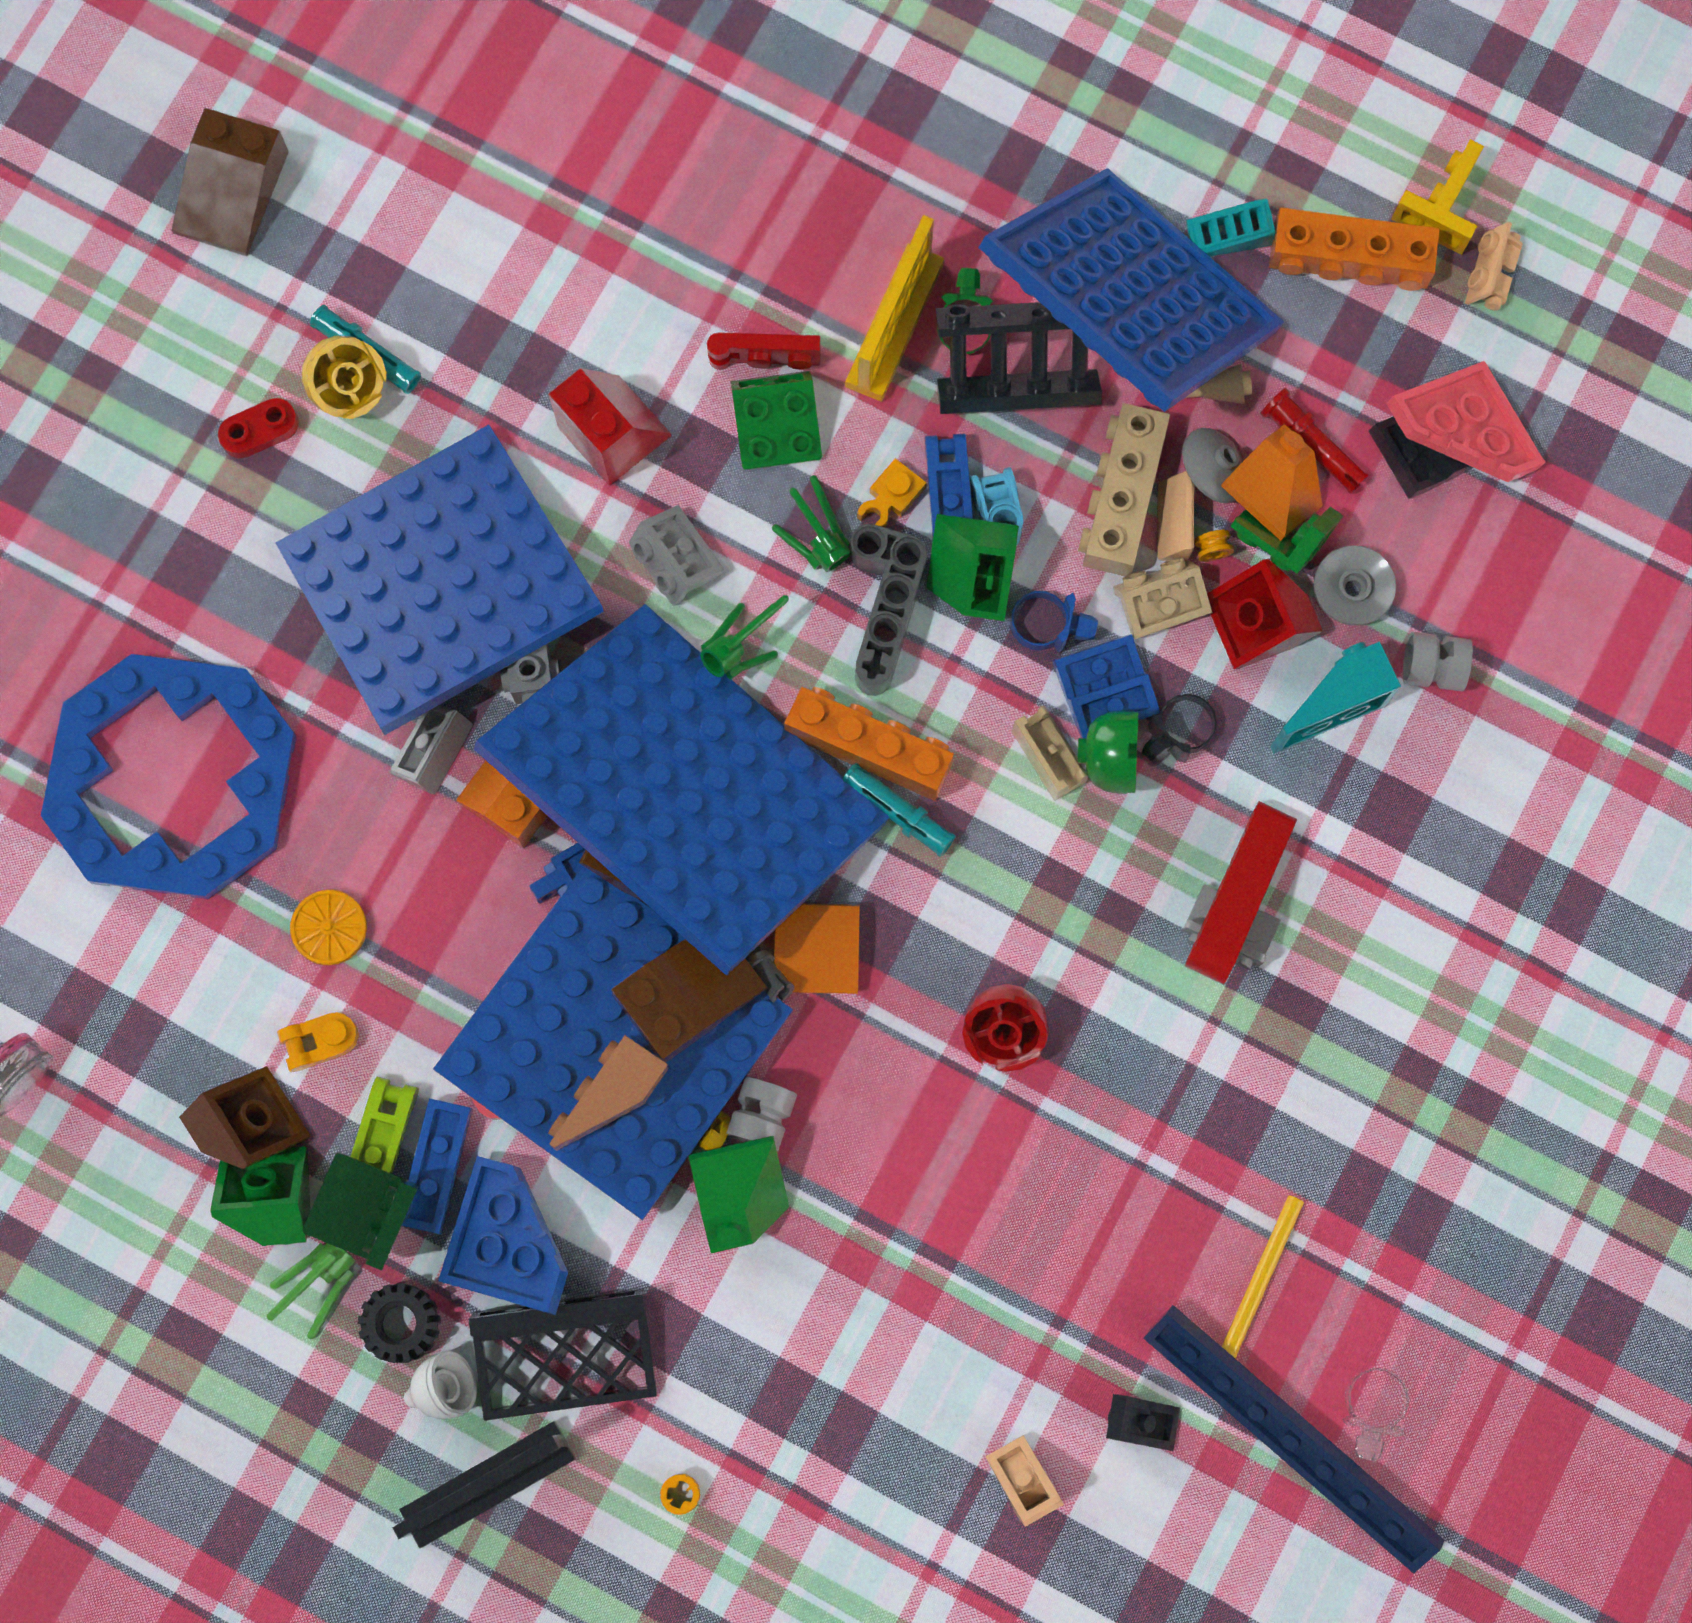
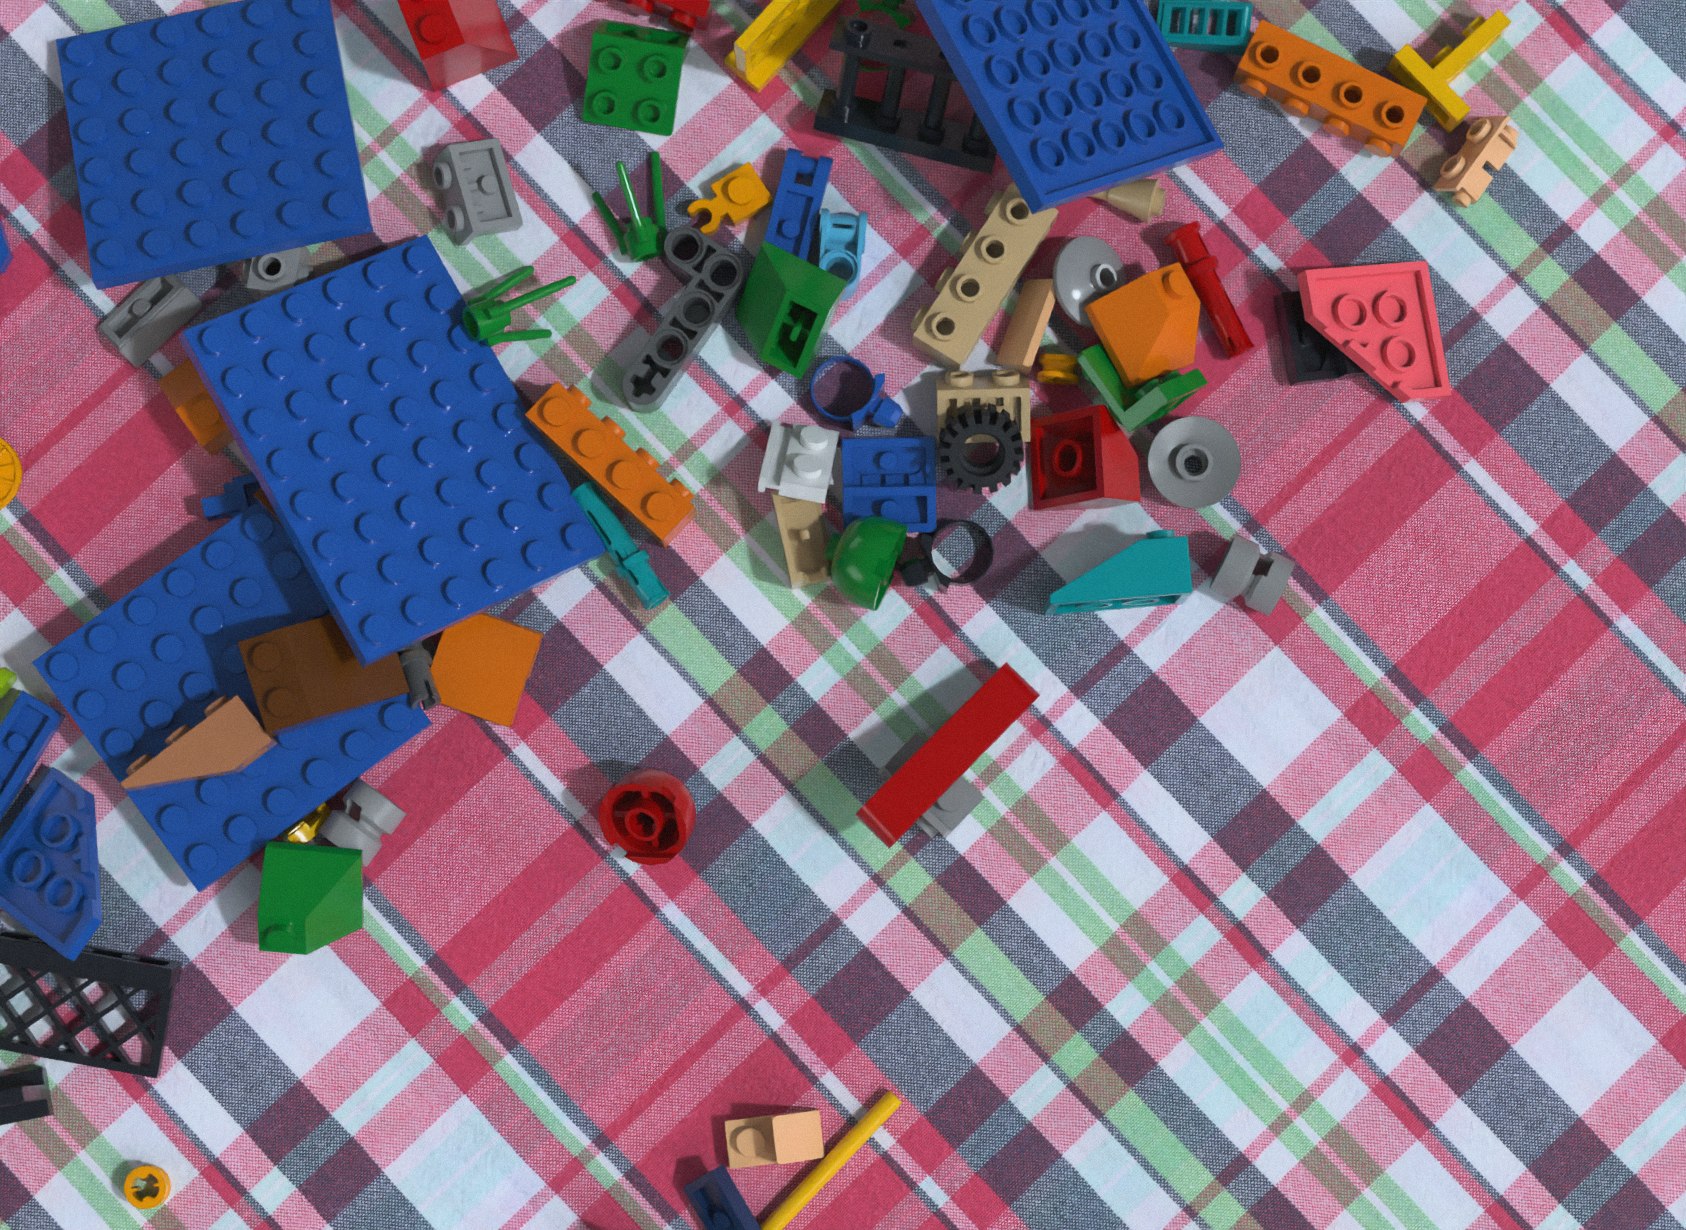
camera: 15 degrees right, 5 degrees up
(1027, 689) = (799, 461): none -> white plate
(1196, 639) = (980, 474): none -> black tyre
(1206, 1270) = (774, 1139): none -> light nougat slope

